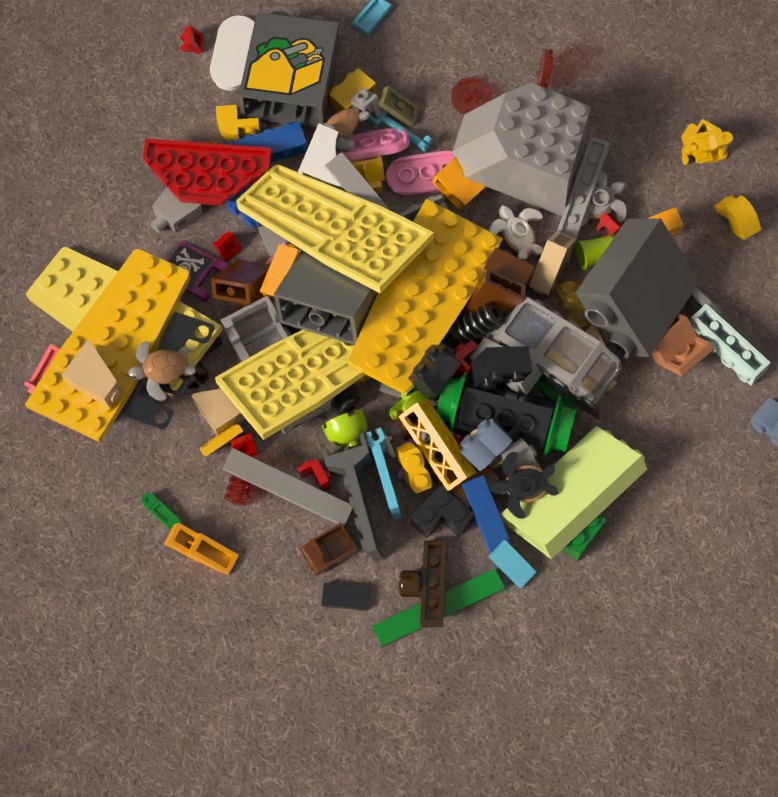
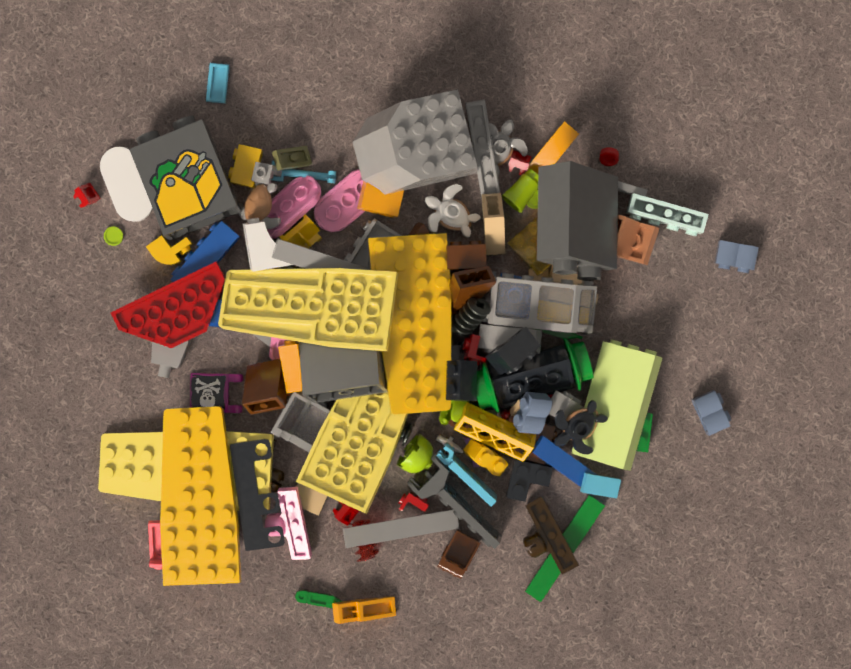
camera: 40 degrees left, 20 degrees up
(92, 377) = (205, 539): tan slope -> none
(160, 367) = (250, 501): animal -> none
(185, 422) = (292, 522): none -> bright pink plate
(192, 89) = (113, 236): none -> lime piece
(221, 439) = (326, 518): yellow tile -> none
(227, 246) = (230, 358): red tile -> none
(345, 596) = (491, 580): black tile -> none
(470, 94) = (342, 110): clear red tile -> none
(545, 67) = (390, 55): clear red tile -> none
(666, 558) = (711, 412): none -> sand blue brick
(701, 266) = (609, 156): none -> red tile
(705, 143) = (554, 48): yellow piece -> none
(740, 214) = (616, 95): yellow brick -> none

